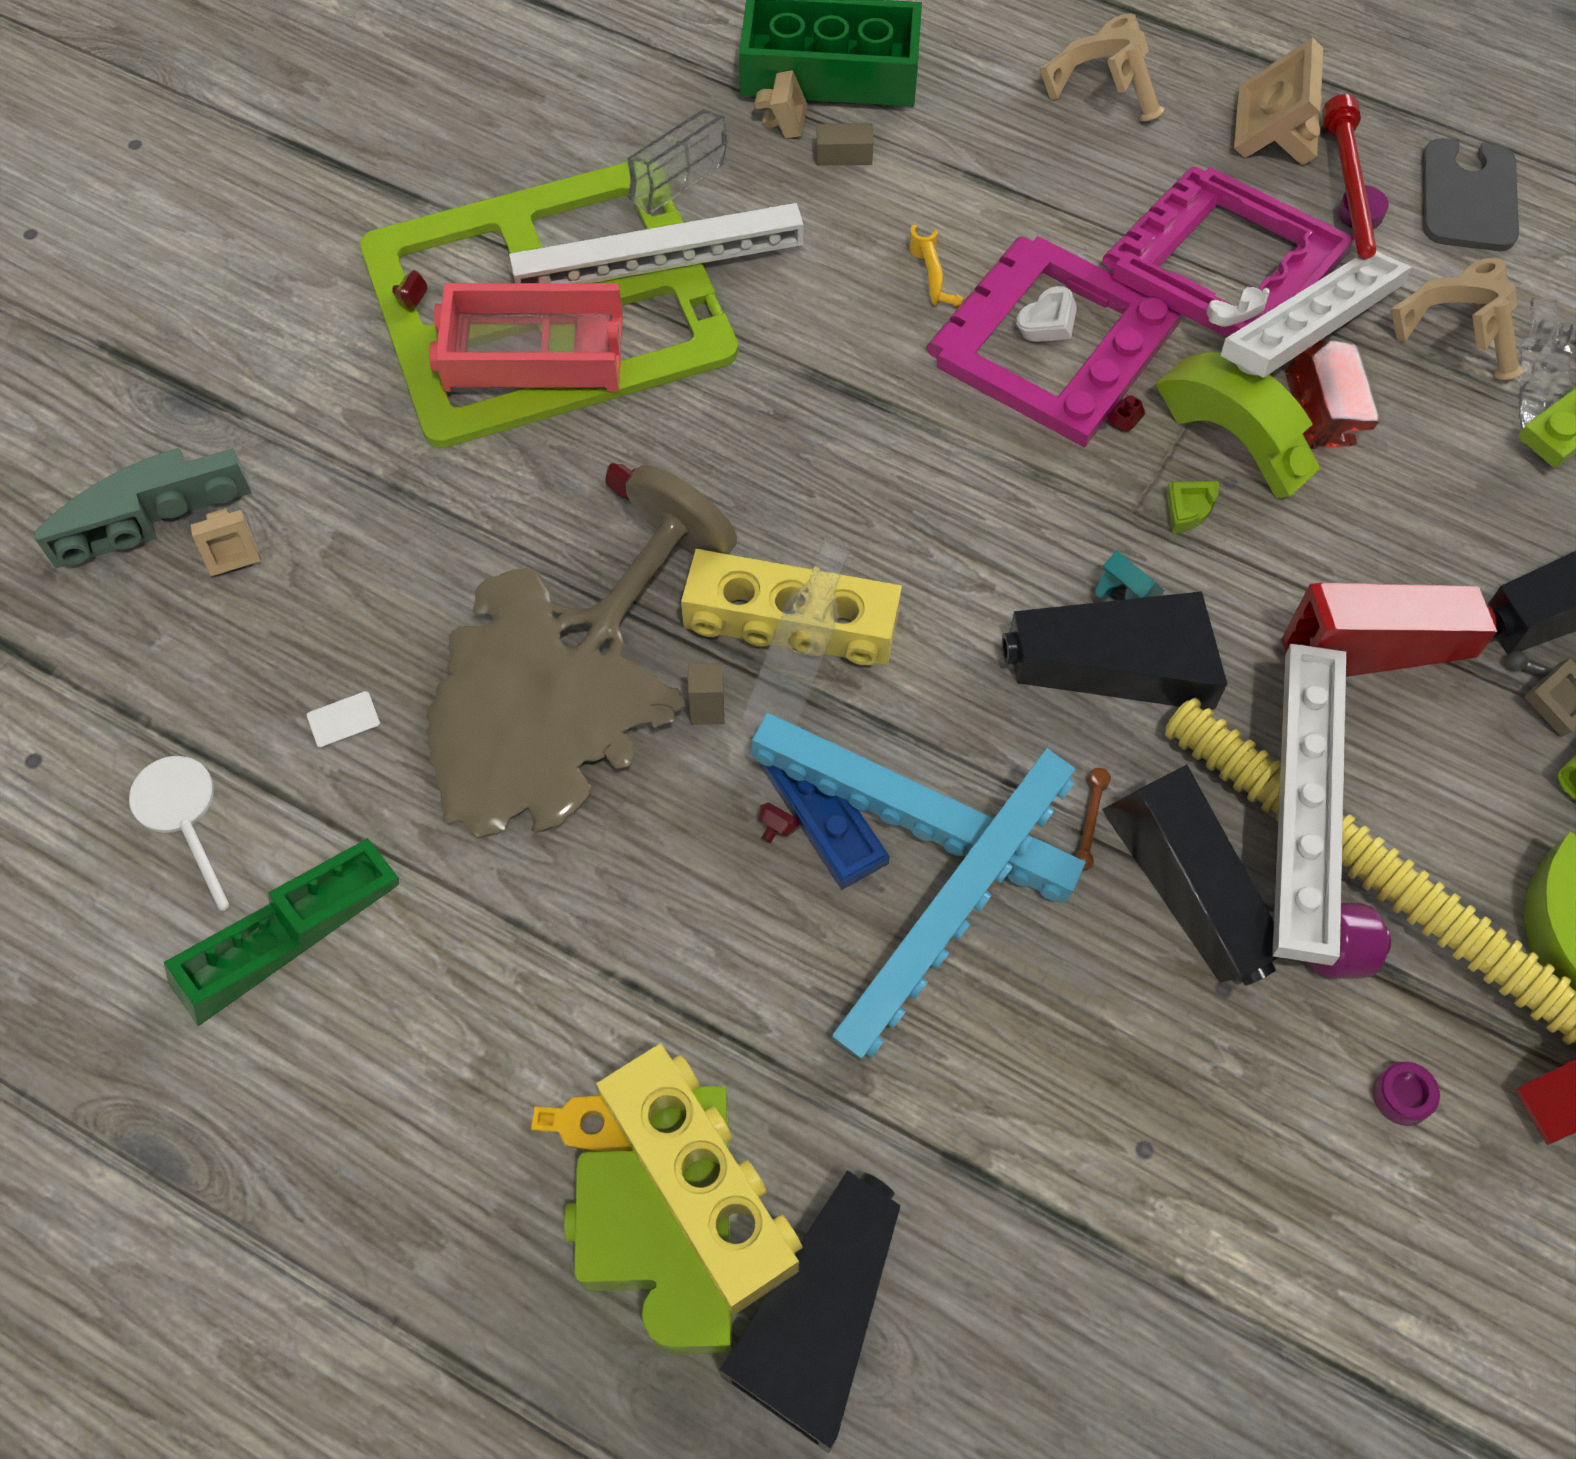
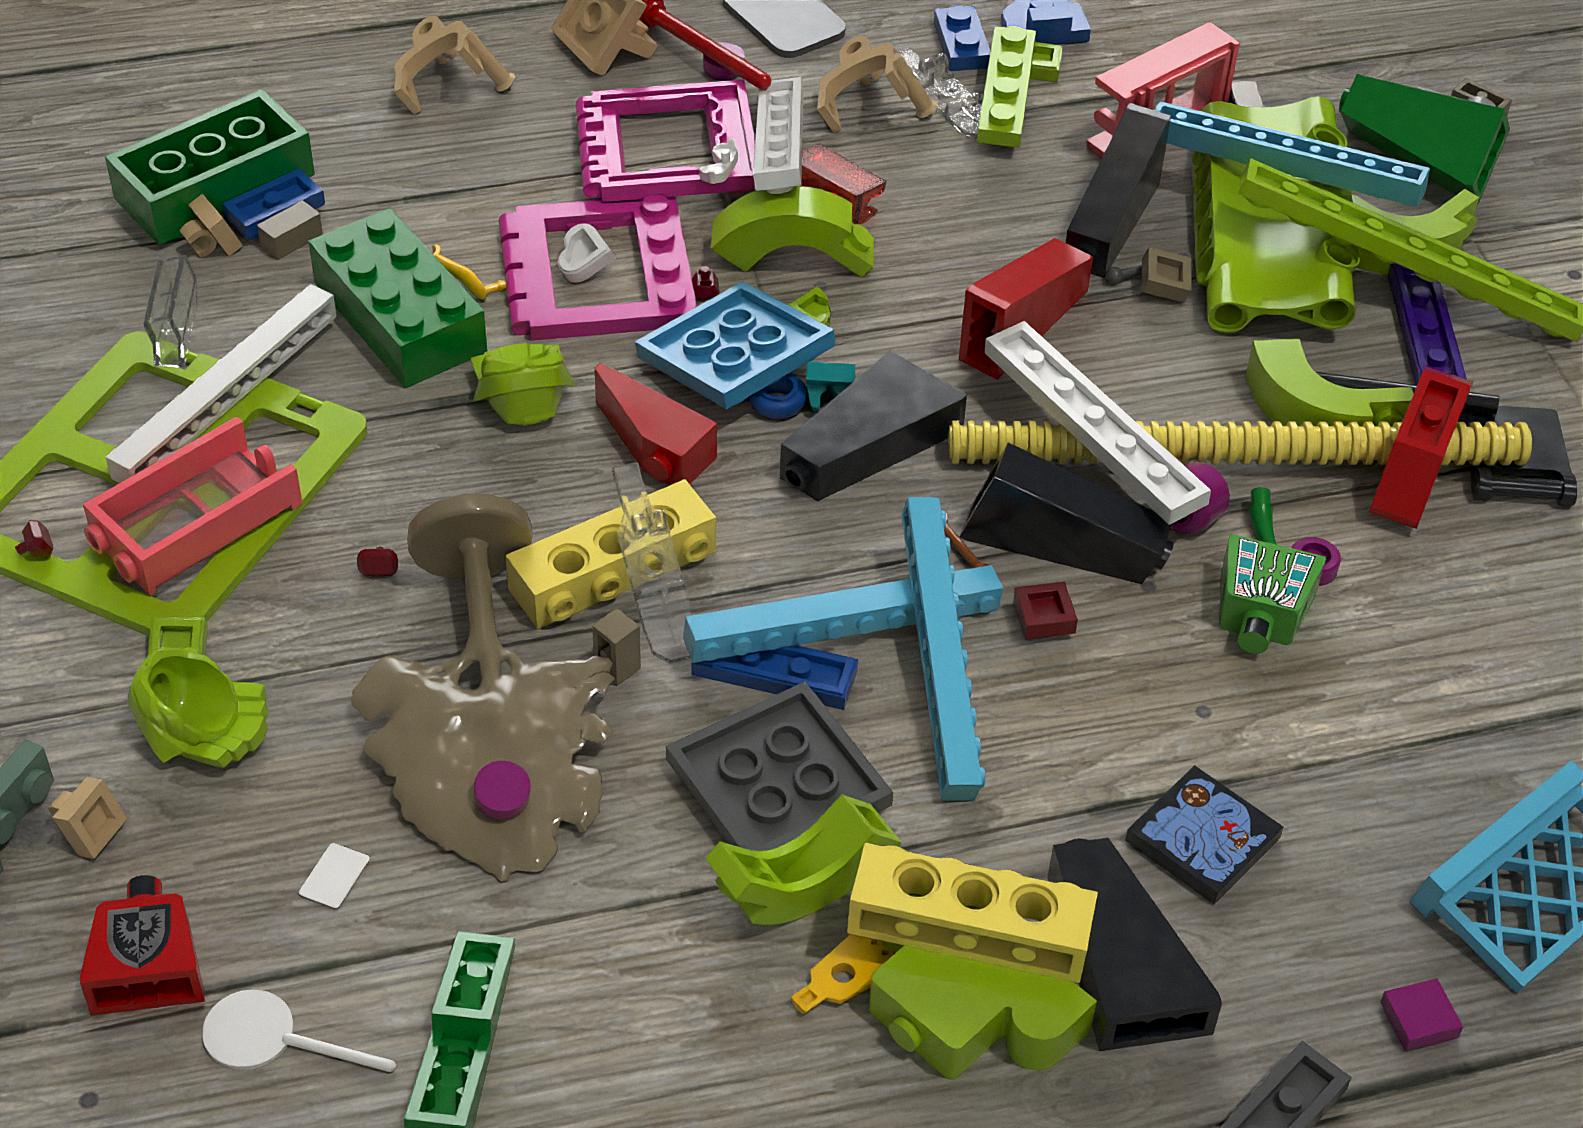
camera: 45 degrees left, 15 degrees down
(156, 675) = (141, 952): none -> red torso
(371, 509) = (196, 709): none -> lime hair
(419, 446) = (178, 633): none -> lime tile
(497, 749) = (502, 789): none -> magenta tile
(638, 1010) = (807, 871): none -> lime arch
(717, 910) = (774, 769): none -> dark grey plate
(777, 821) = (752, 693): dark red rock -> none
(854, 106) = (270, 199): none -> blue plate
(857, 259) = (398, 297): none -> green brick
(881, 399) = (522, 381): none -> lime hair
(940, 532) = (659, 432): none -> red slope
(1014, 1268) = (1204, 834): none -> tile
(1082, 489) = (735, 344): none -> dark azure plate
(1084, 543) = (782, 406): none -> blue piece
(1093, 940) = (1045, 610): none -> dark red plate
(1316, 1090) = (1266, 591): none -> bright green torso
(1396, 1015) = (1262, 515): none -> green helmet

